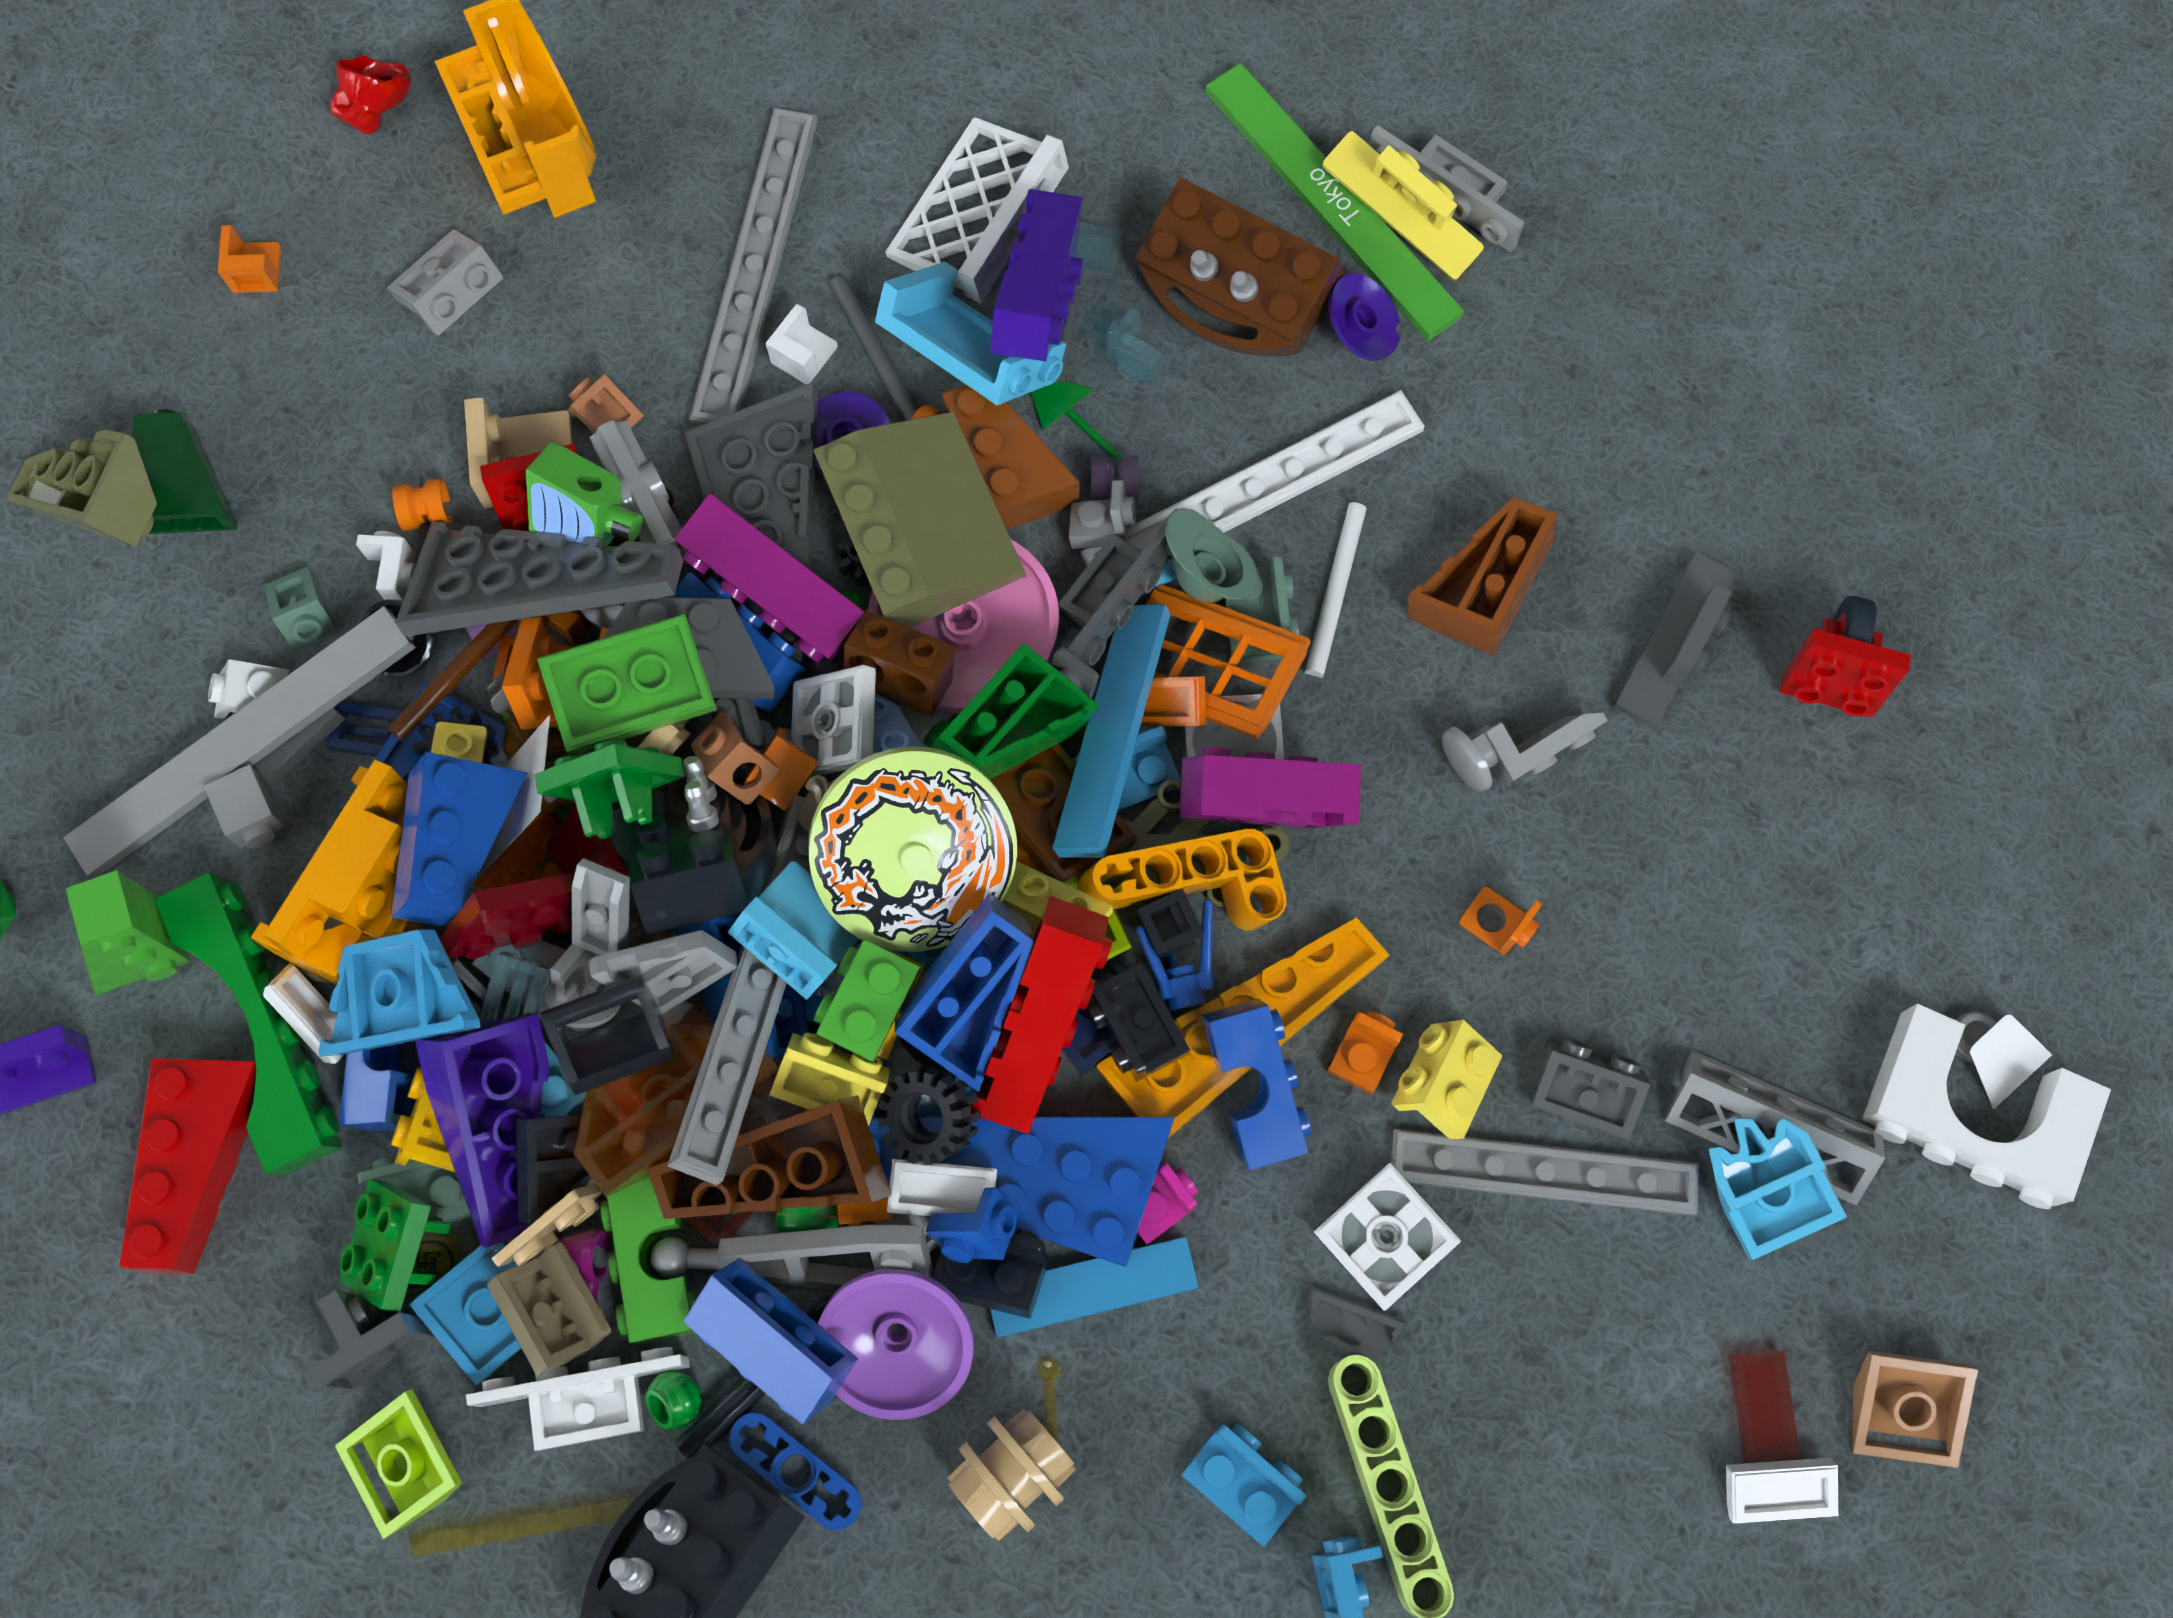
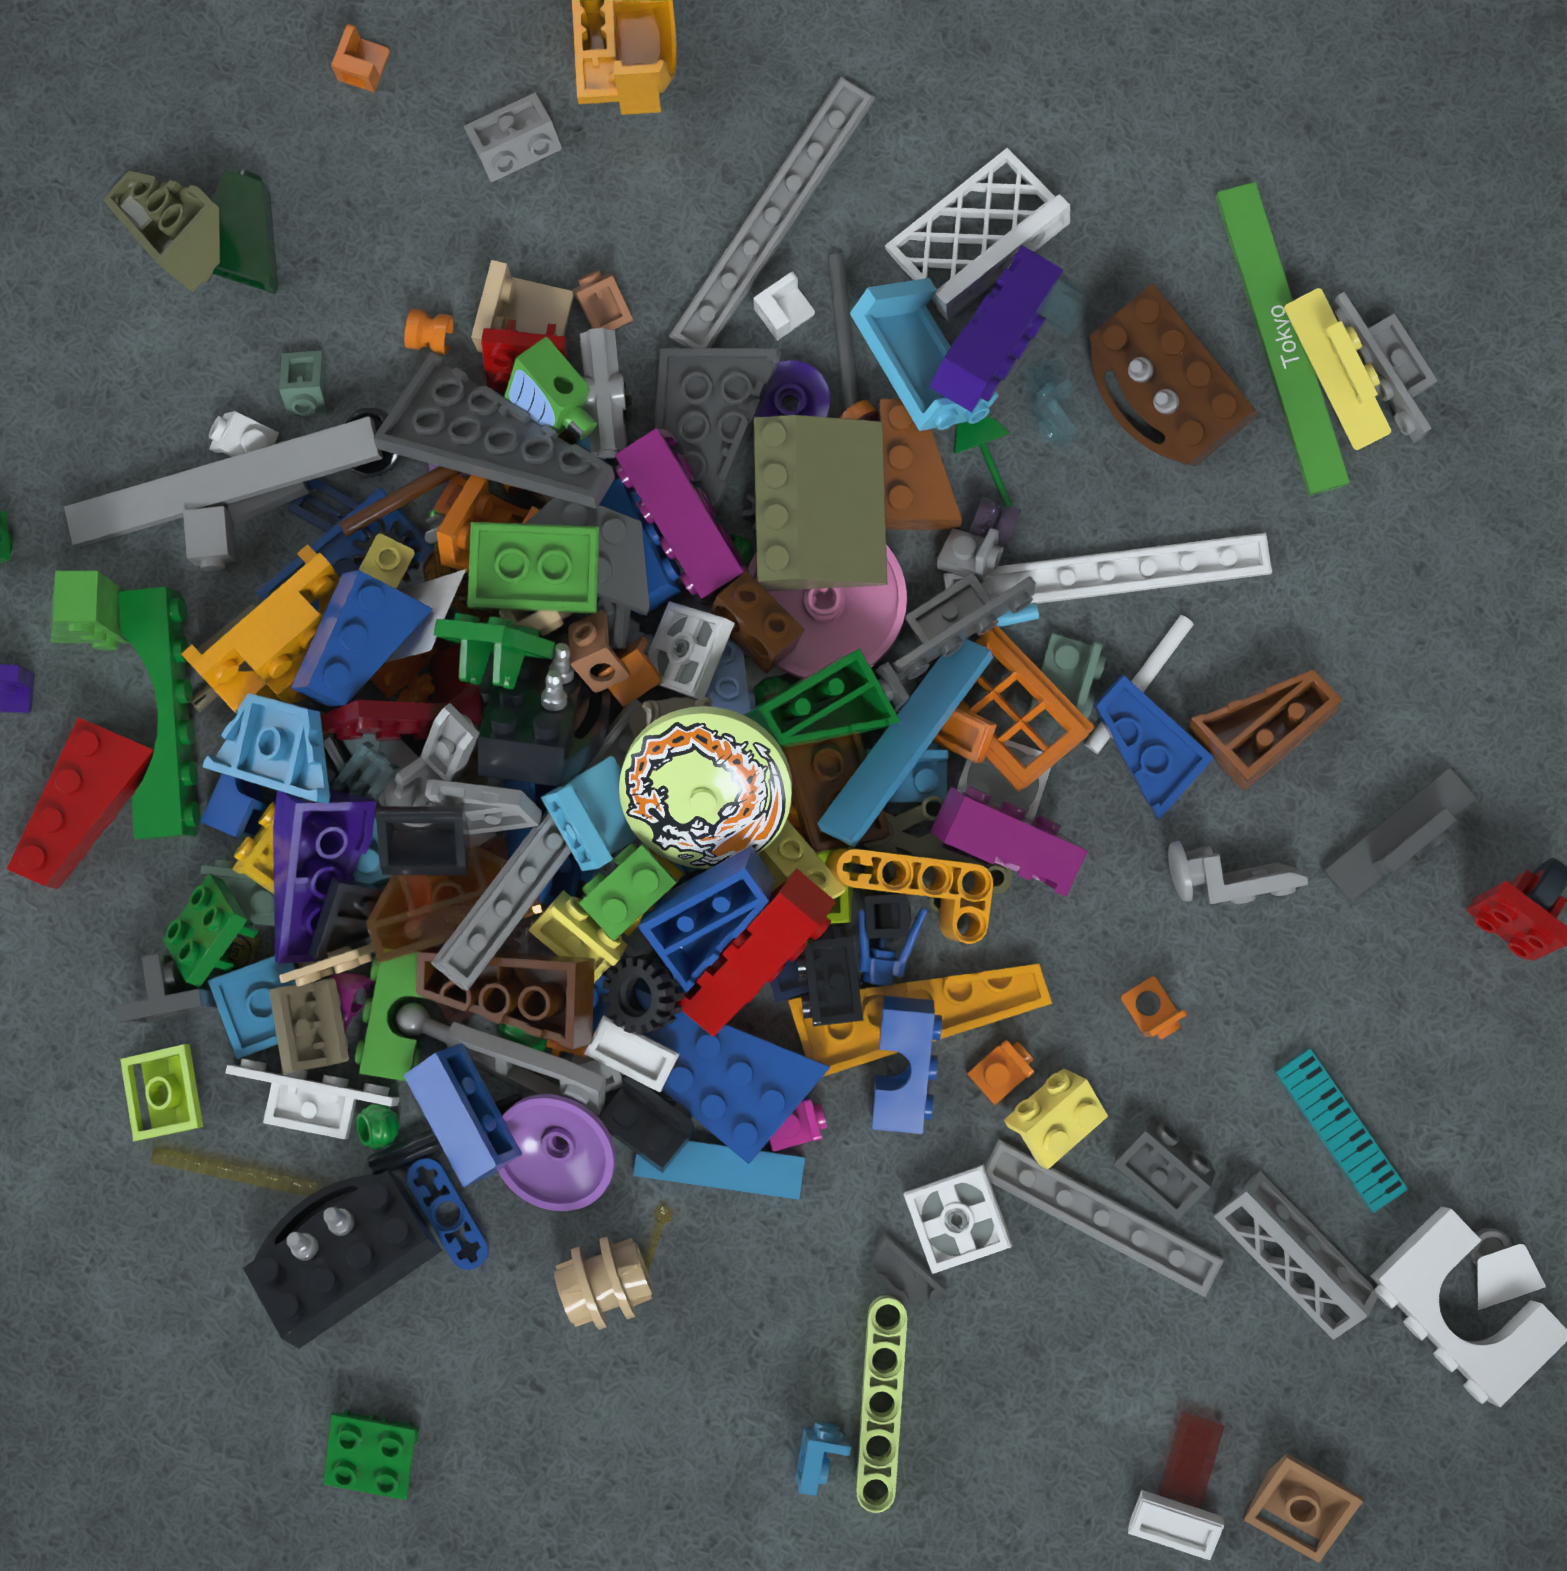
camera: 25 degrees right, 10 degrees up
(302, 1008) = (202, 720): white tile -> none
(395, 562) = (391, 379): white bracket -> none
(975, 1234) = (646, 1100): blue bracket -> none
(1207, 560) = (1041, 626): sand green piece -> none
(1244, 1483) = (774, 1357): dark azure bracket -> none
(1364, 317) = (1273, 454): dark purple dish -> none
(1376, 642) = (1151, 744): none -> blue wing
(1759, 972) = (1341, 1130): none -> teal tile
(1773, 1187) = (1271, 1303): medium azure plate -> none

